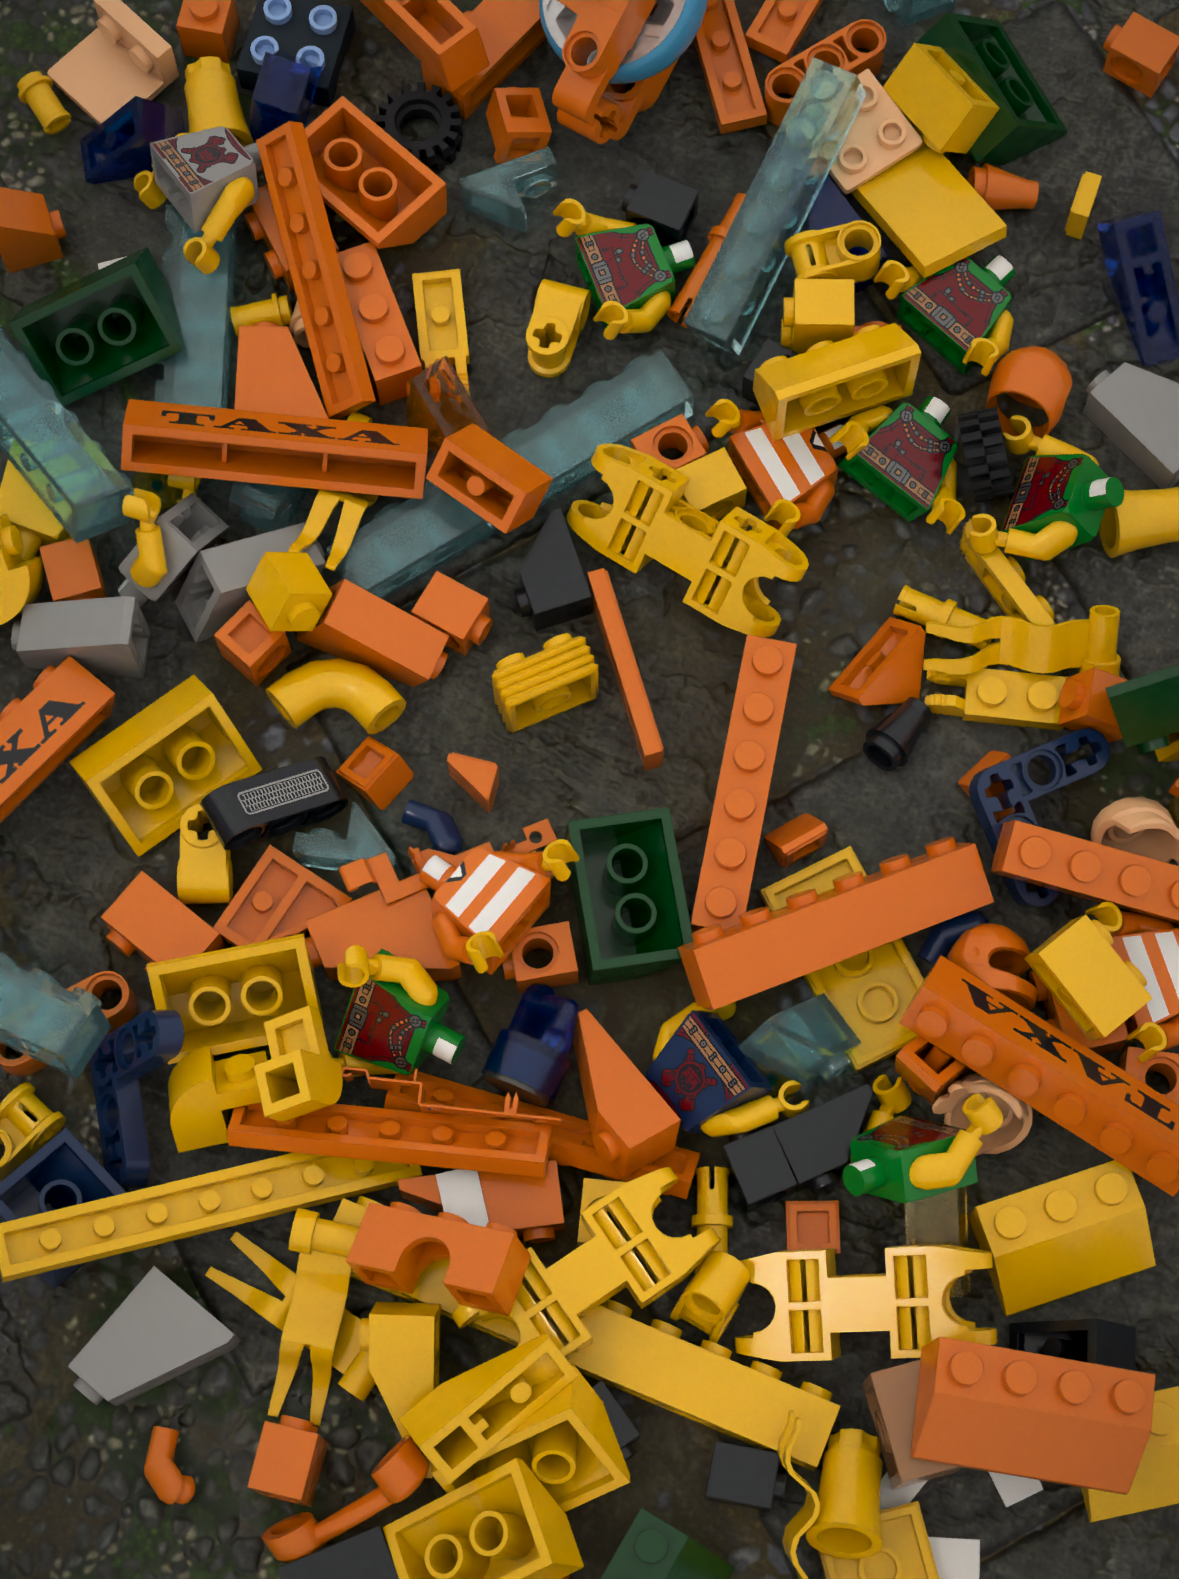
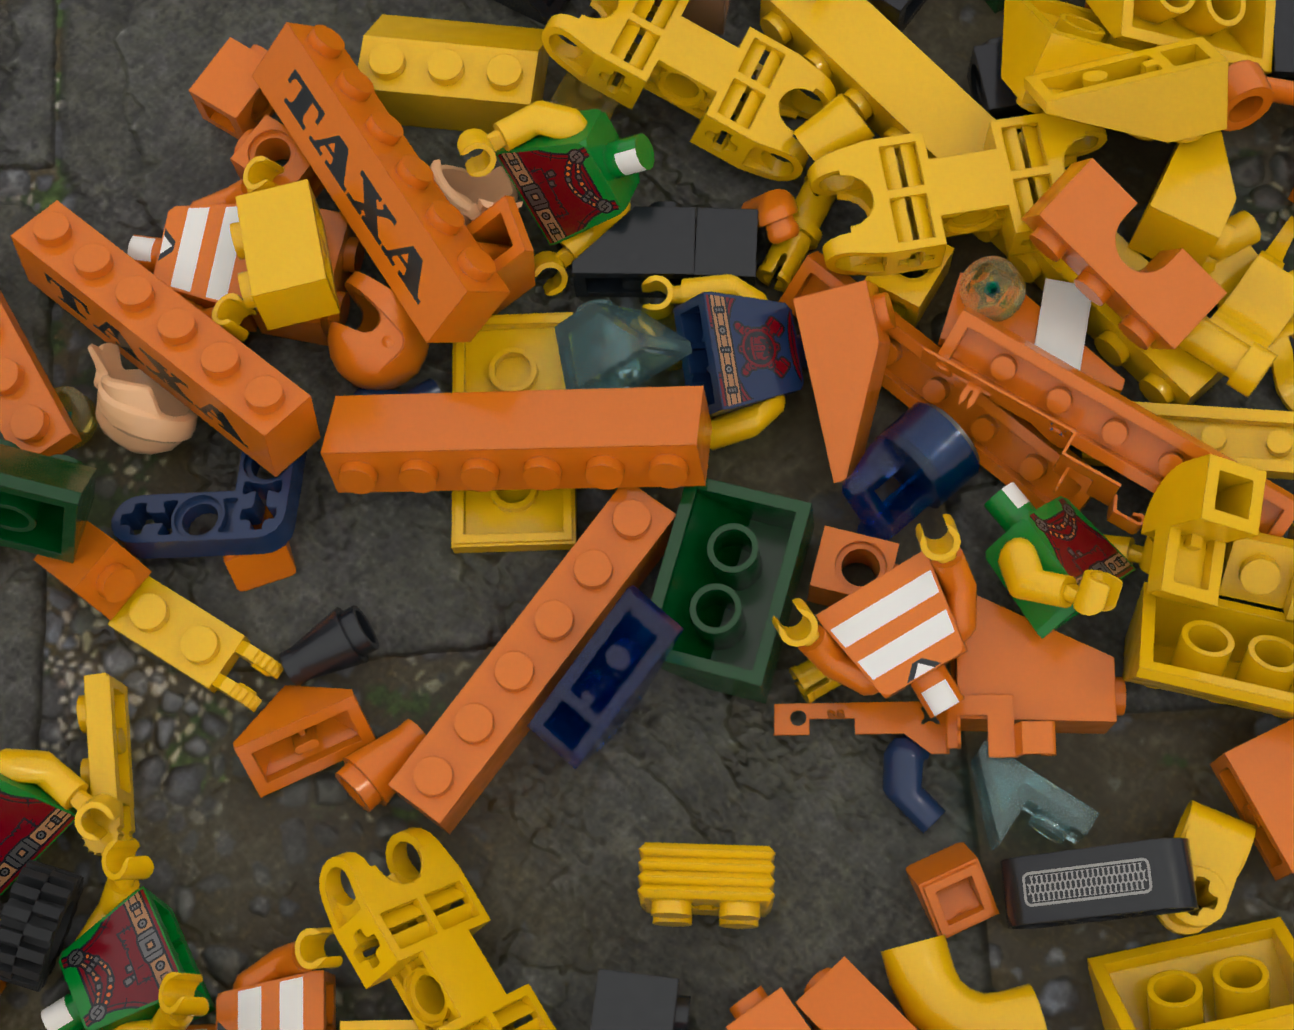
camera: 150 degrees left, 0 degrees up
(276, 901) = (1137, 774): orange wing -> none
(476, 777) = (836, 816): orange slope -> none
(531, 1207) = (993, 288): none -> clear yellow tile
(625, 669) = (599, 870): orange tile -> none
(681, 770) = (607, 678): none -> clear blue slope
(735, 1214) = (776, 214): none -> orange arm
(797, 839) = (503, 581): orange slope -> none
(812, 1225) = (699, 181): orange tile -> none
(813, 670) = (375, 765): none -> orange cone
(924, 608) = (200, 758): yellow pin -> none
(1035, 646) = (67, 638): yellow flag -> none

